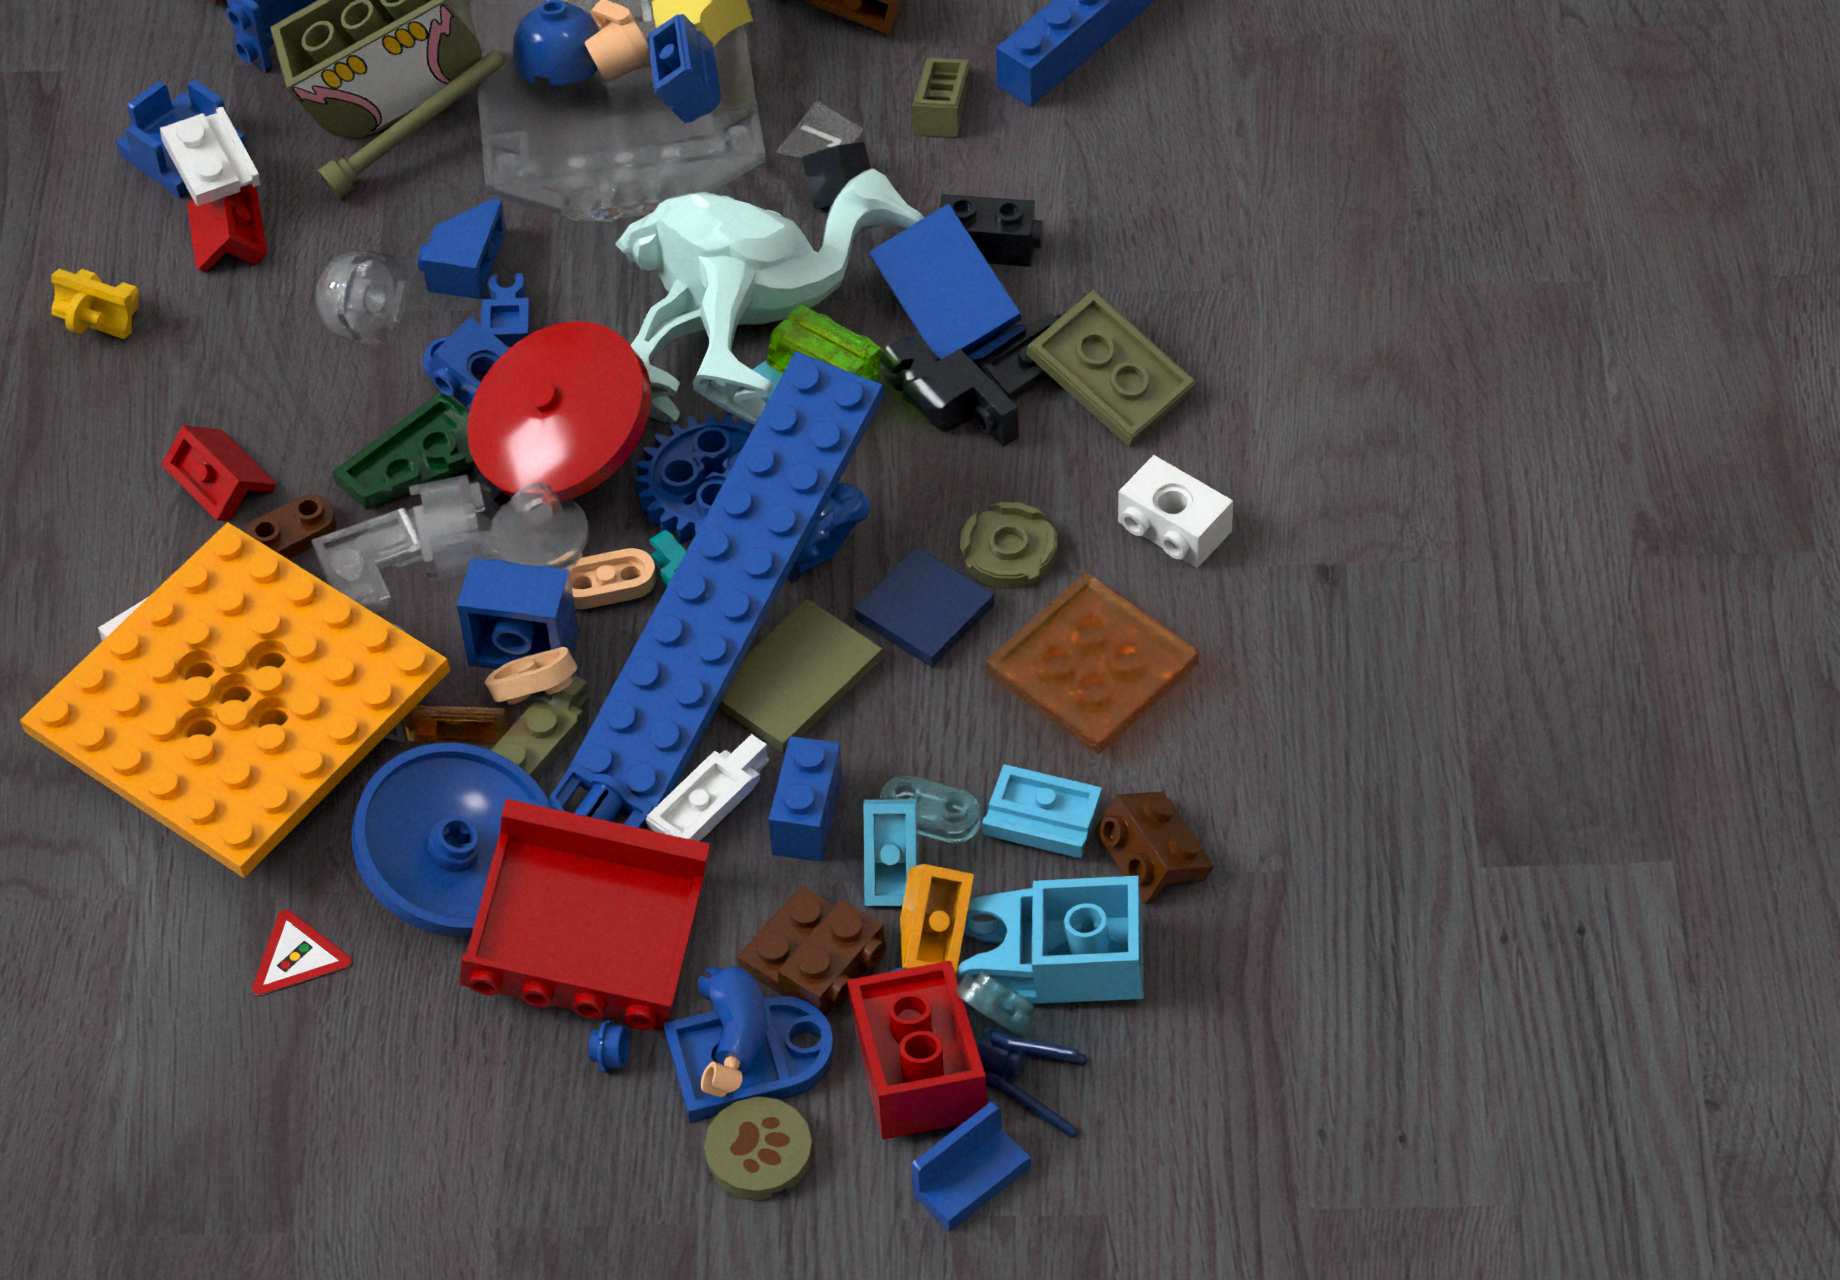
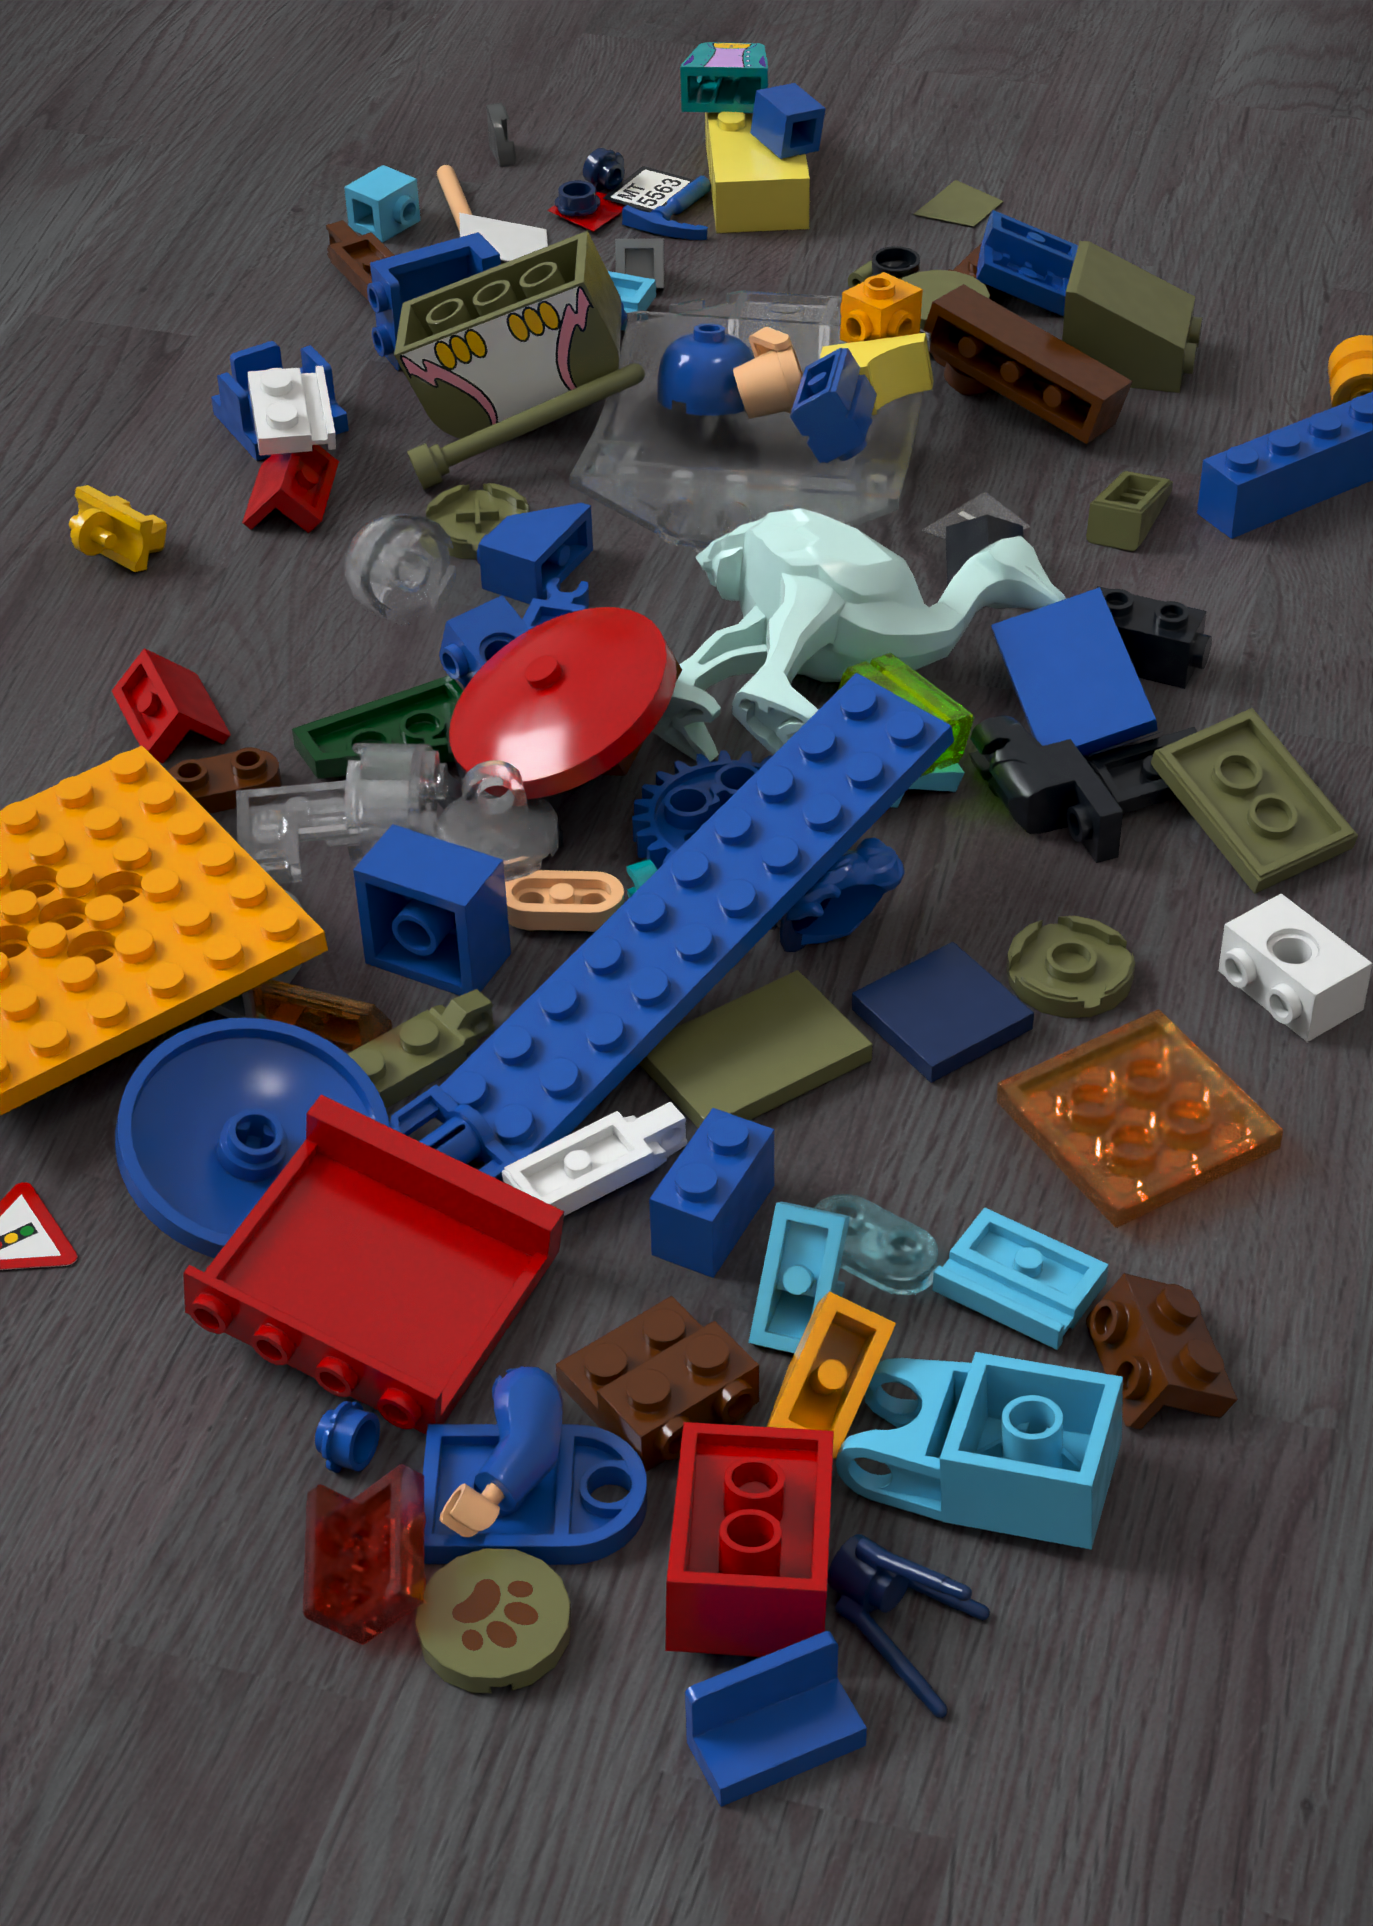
camera: 15 degrees right, 10 degrees down
(398, 221) = (473, 514): none -> olive tile
(532, 674) = (443, 977): light nougat plate -> none
(659, 1126) = (365, 1555): none -> clear red bracket
(998, 1002) = (865, 1487): clear light blue plate -> none

